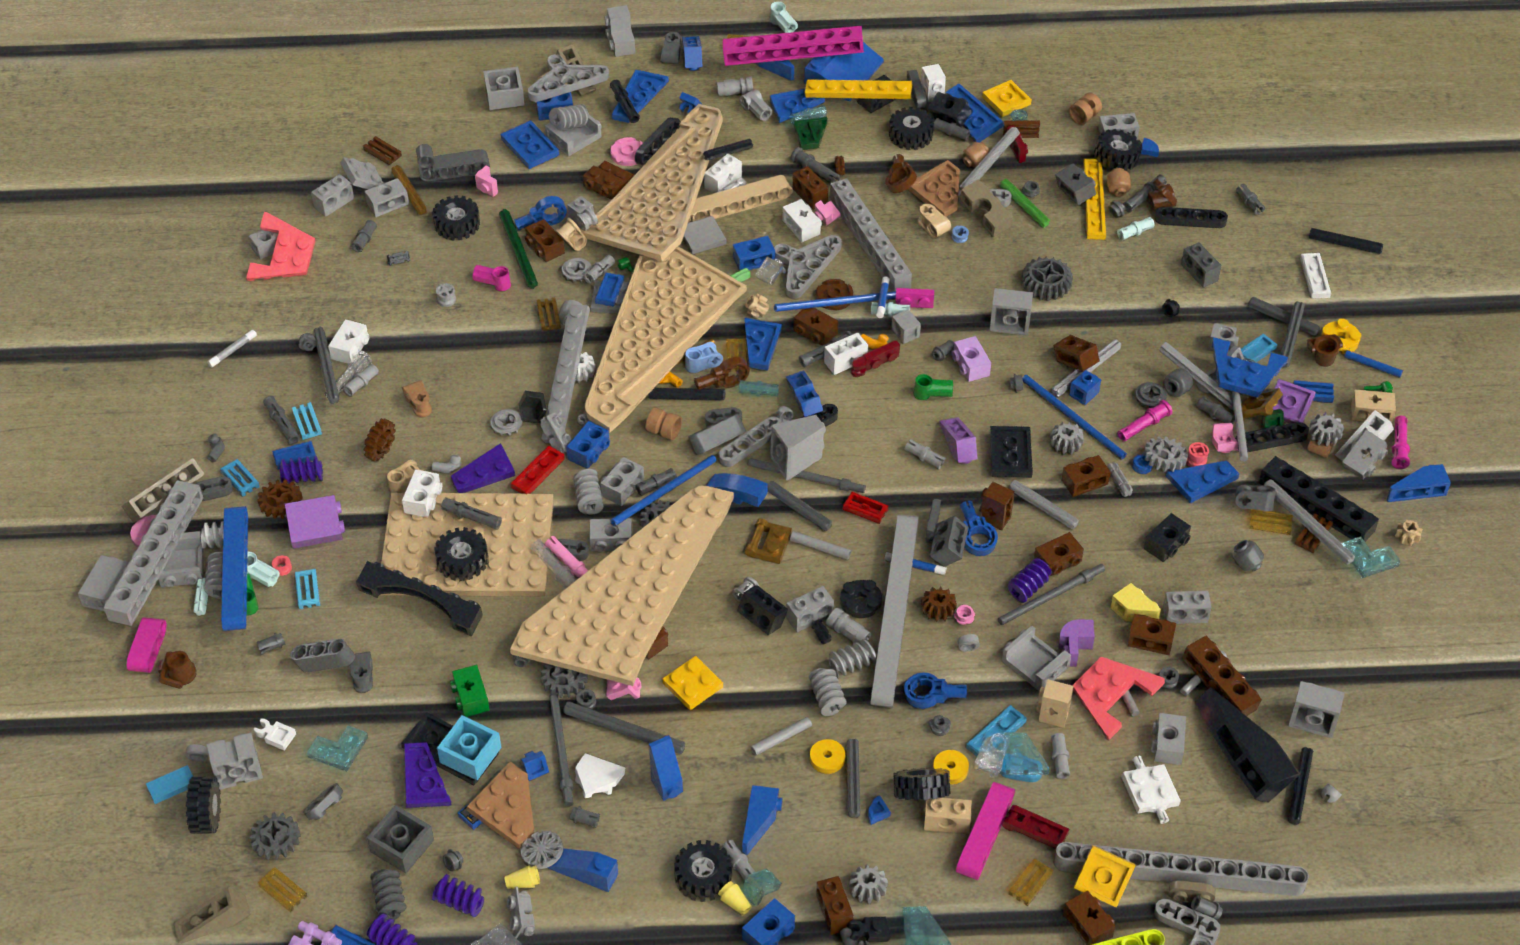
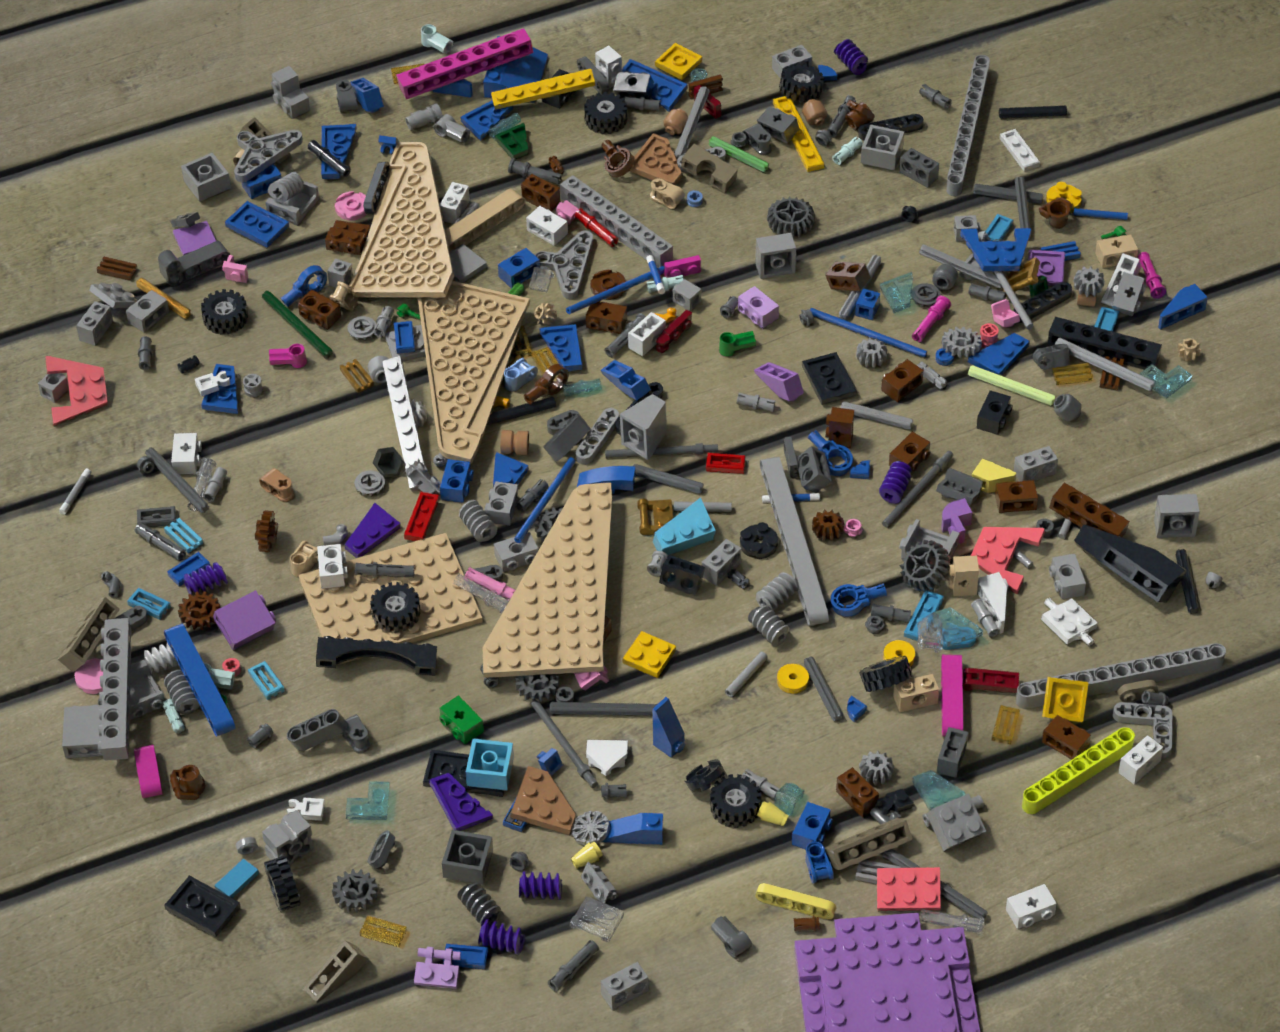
camera: 20 degrees left, 0 degrees up
(123, 801) = (202, 906): none -> black plate
(291, 398) = (155, 518): none -> dark grey tile
(403, 281) = (209, 383): none -> white plate
(415, 291) = (226, 398): none -> blue wing
(465, 123) = (186, 220): none -> dark grey plate
(466, 140) = (193, 237): none -> medium lavender tile
(586, 219) = (352, 278): light grey wheel -> none
(646, 450) = (508, 470): none -> blue wing
(682, 831) = (702, 777): none -> black plate
(718, 336) = (521, 352): none -> clear yellow tile
(728, 149) = (449, 178): black axle -> none
(761, 814) = (760, 739): blue slope -> none
(780, 414) = (617, 403): light grey hinge -> none
(787, 564) = (685, 530): none -> medium azure wedge
(846, 230) = (591, 223): none -> red pin
(849, 628) = (760, 567): light grey axle -> none
(955, 894) = (952, 752): none -> dark grey brick
(962, 718) = (891, 613): none -> dark grey pin
(968, 642) = (867, 549): light grey tile -> none
(1001, 557) = (861, 470): none -> blue tile
(1018, 679) = (919, 576): none -> dark grey gear
(1050, 193) = (758, 139): none -> dark grey piece
(1080, 736) = (993, 591): none -> white slope
(1085, 108) = (754, 52): medium nougat wheel -> none
(1096, 606) = (960, 486): none -> dark grey bracket
(1123, 384) = (898, 292): none -> clear light blue wing
(1171, 234) = (882, 147): none -> light grey brick
(1181, 138) = (851, 56): none -> dark purple piece
(1200, 514) = (1011, 385): none -> yellowish green axle
(1270, 237) = (968, 125): none -> light grey beam
(1333, 475) = (1107, 319): none -> dark azure tile

